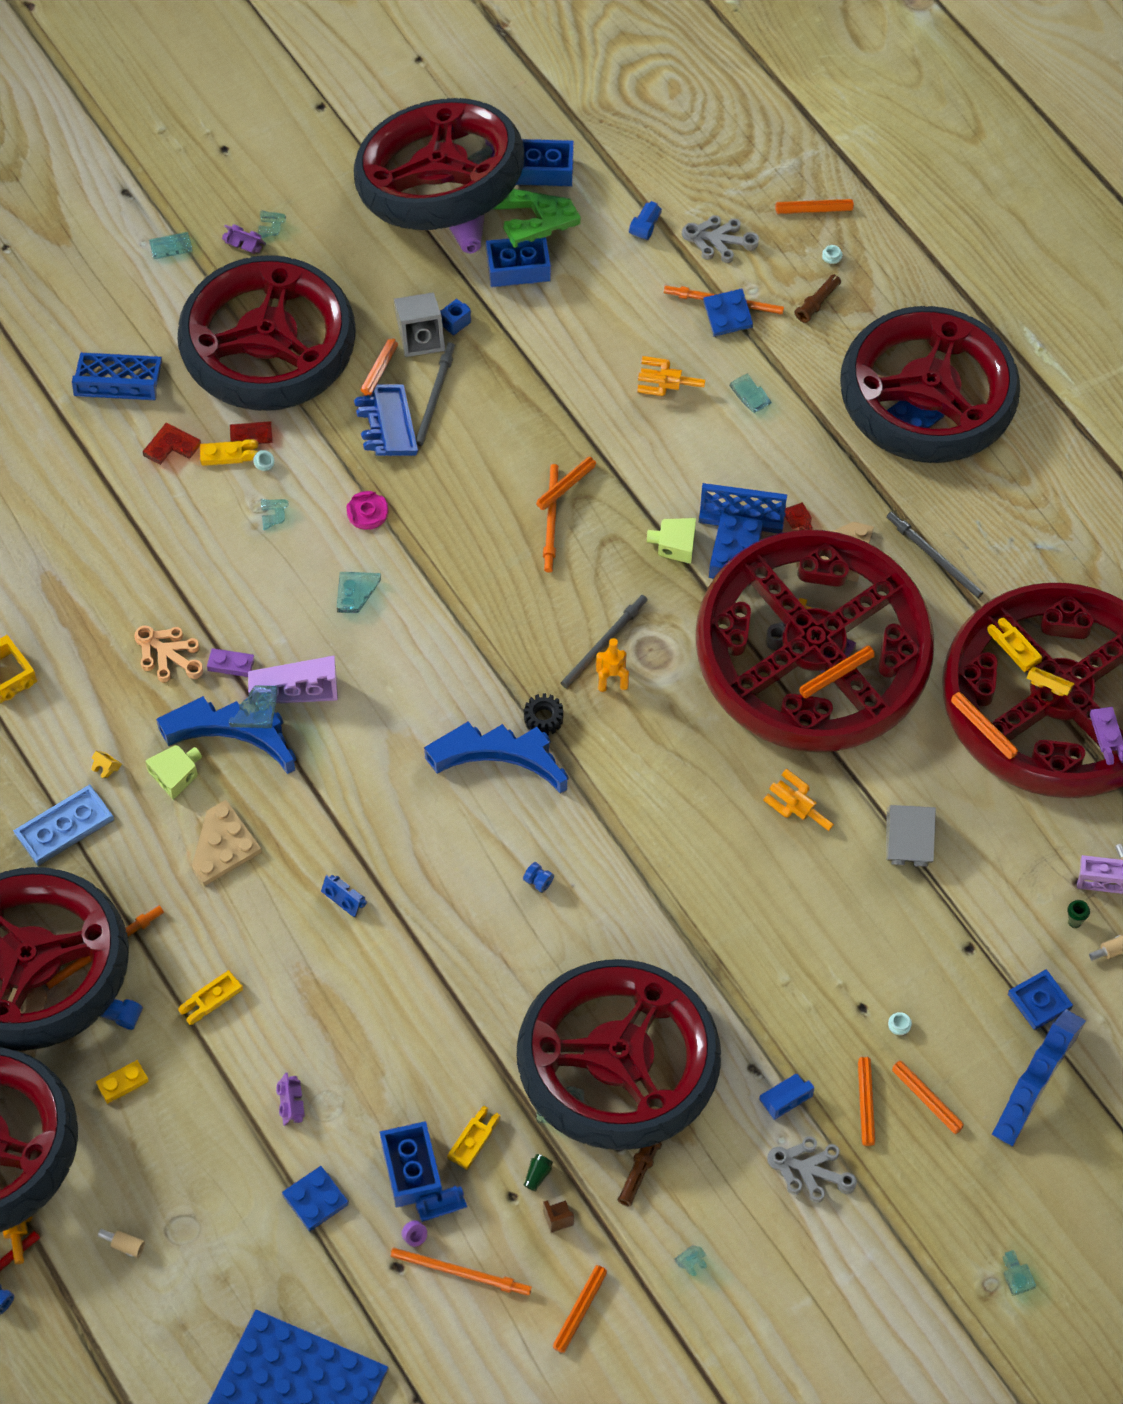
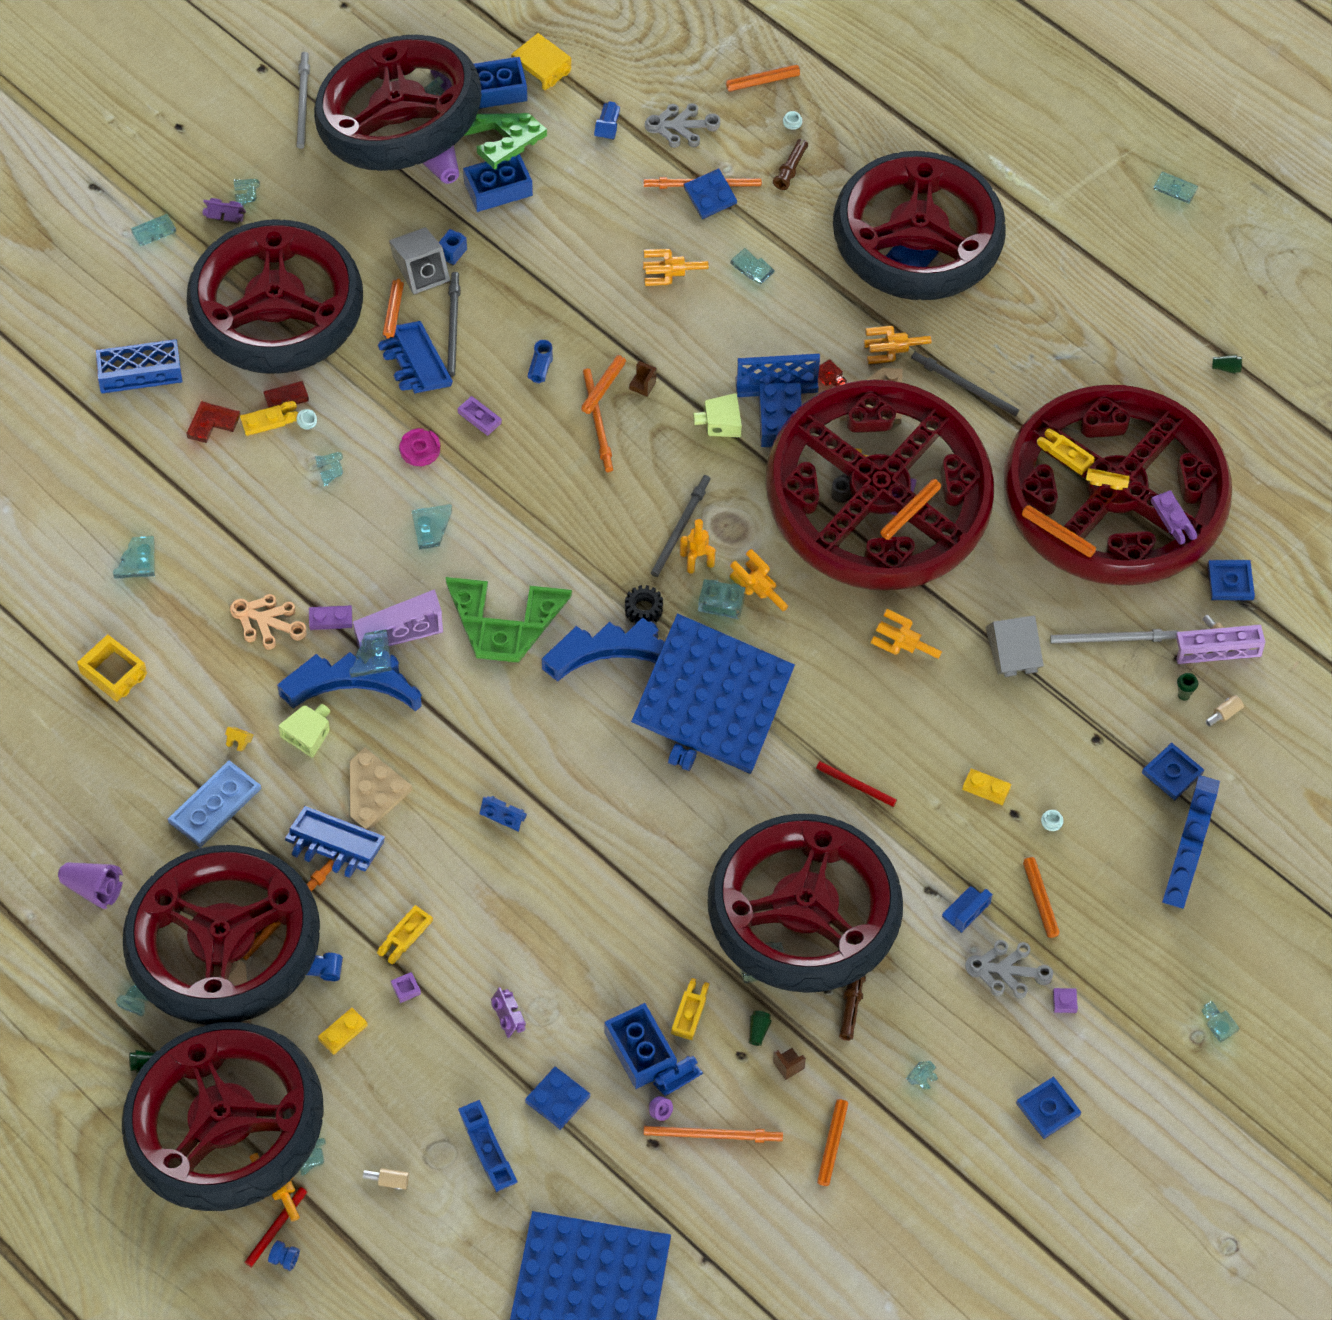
camera: 15 degrees left, 0 degrees up
(57, 1207) = (317, 1158): none -> clear light blue piece
(60, 566) = (137, 559): none -> clear light blue wing
(165, 882) = (332, 836): none -> hinge
(195, 1051) = (405, 987): none -> medium lavender plate
(229, 1232) = (487, 1146): none -> blue slope
(361, 116) = (304, 71): none -> light grey bar
(393, 718) = (498, 637): none -> bright green wing
(434, 490) = (479, 415): none -> medium lavender plate
(510, 449) = (540, 362): none -> blue piece
(587, 818) = (713, 693): none -> blue plate
(598, 149) = (543, 60): none -> yellow panel
(609, 486) = (644, 379): none -> reddish brown panel
(621, 728) = (720, 603): none -> clear light blue brick
(665, 712) = (757, 580): none -> light orange plant
(708, 942) = (856, 783): none -> red bar
(812, 1323) = (1048, 1107): none -> blue plate
(842, 974) = (986, 786): none -> yellow plate
(861, 1214) = (1065, 1000): none -> medium lavender plate
(869, 498) = (892, 343): none -> light orange plant
(928, 1097) = (1095, 881): orange axle -> none
(1060, 853) = (1155, 635): none -> light grey bar

